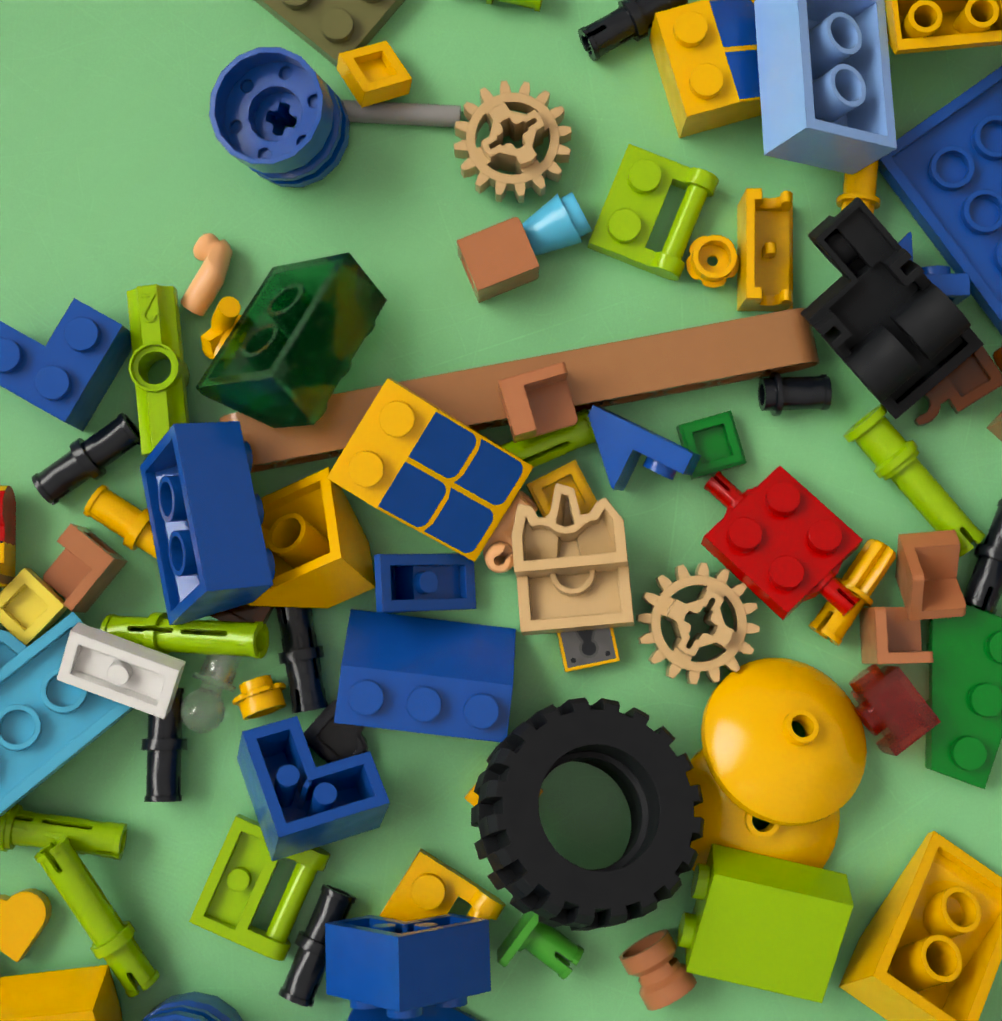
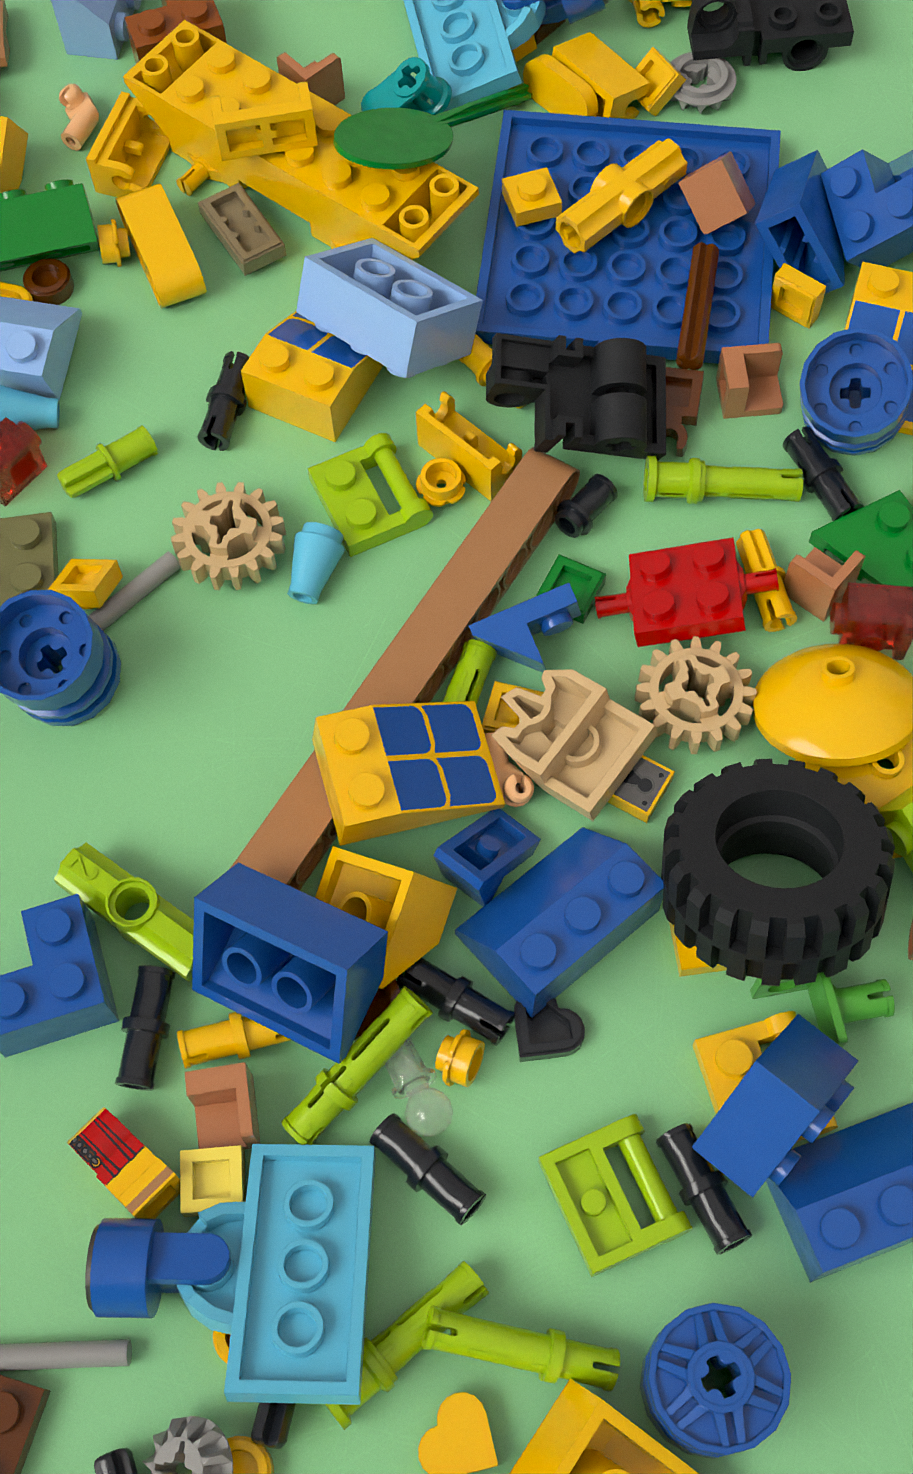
camera: 45 degrees left, 20 degrees down
(120, 670) = (338, 1134): white plate -> none
(211, 275) = (106, 817): light nougat arm -> none
(222, 322) = (162, 837): yellow plate -> none
(295, 341) = (217, 784): clear green slope -> none
(304, 803) = (567, 1083): blue brick -> none
(498, 259) = (300, 611): nougat panel -> none
(537, 402) = (429, 655): nougat panel -> none
(929, 575) = (793, 521): nougat panel -> none

